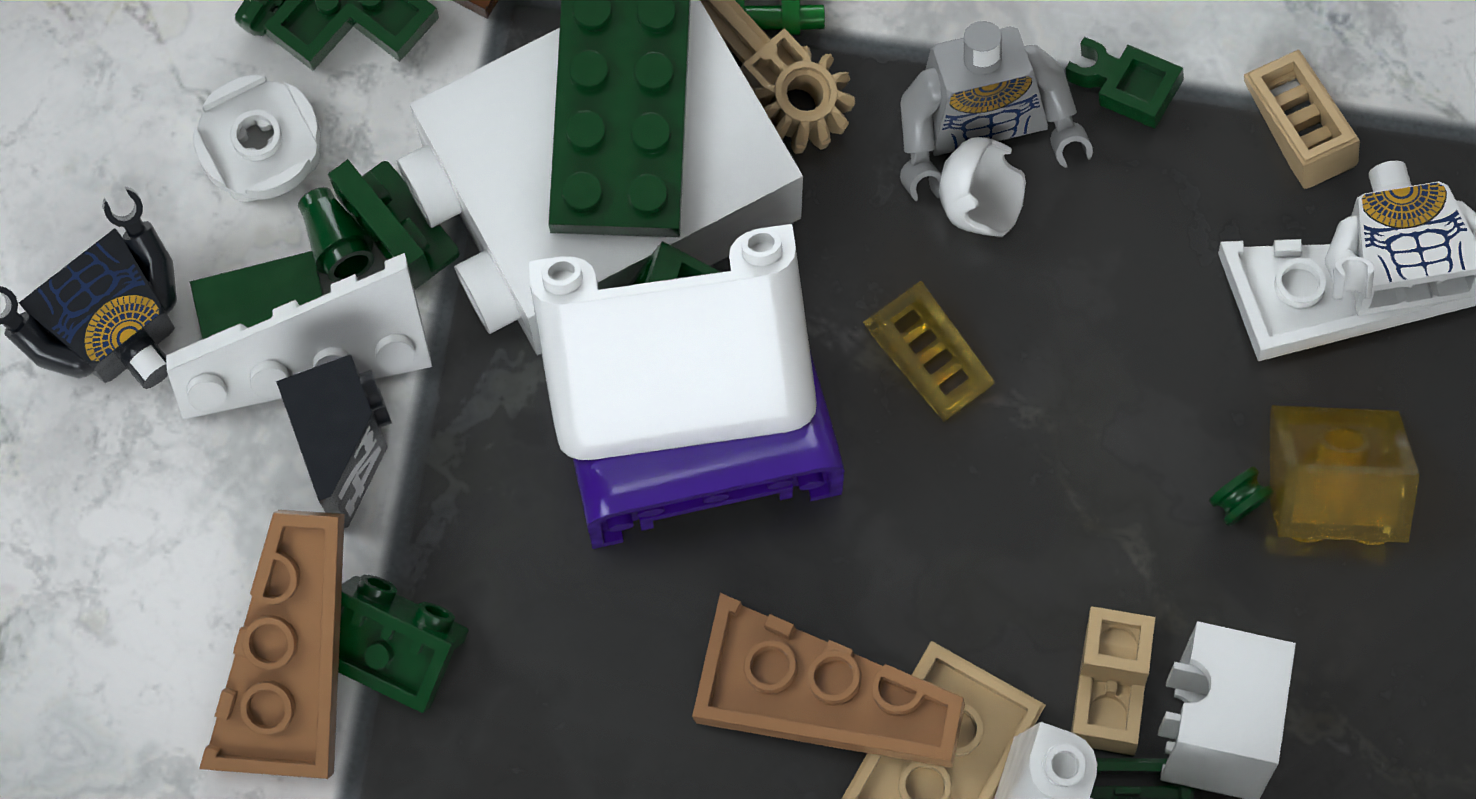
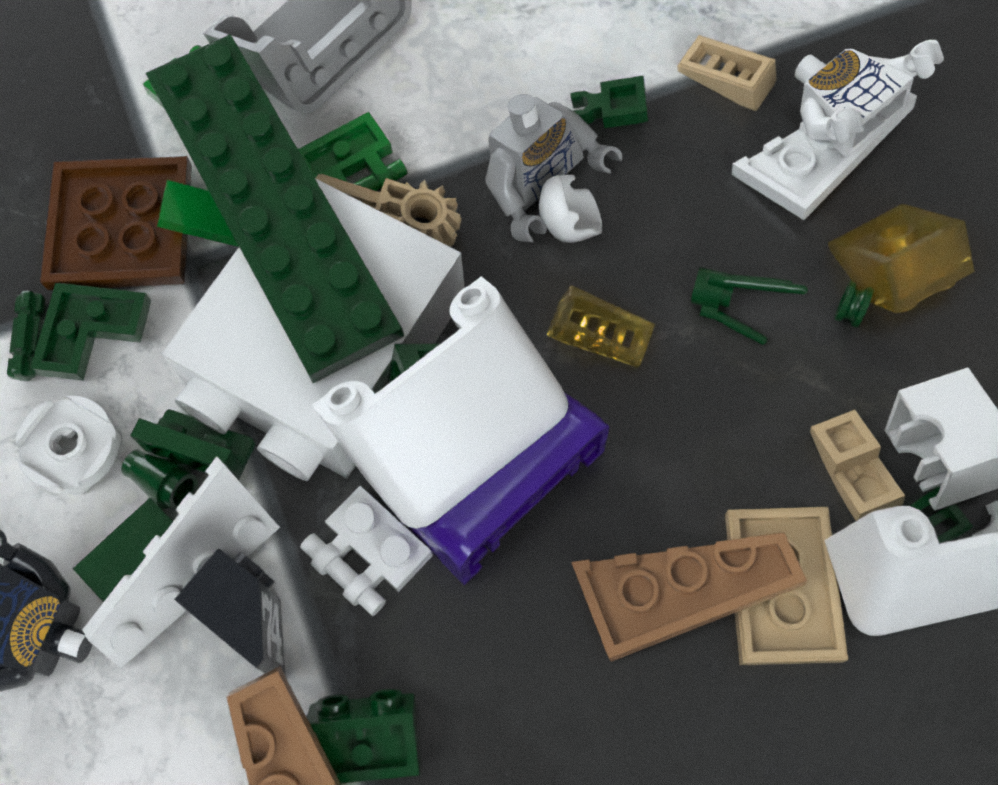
camera: 30 degrees left, 5 degrees down
(528, 444) = (377, 539): none -> white plate
(1093, 384) = (716, 289): none -> dark green plant

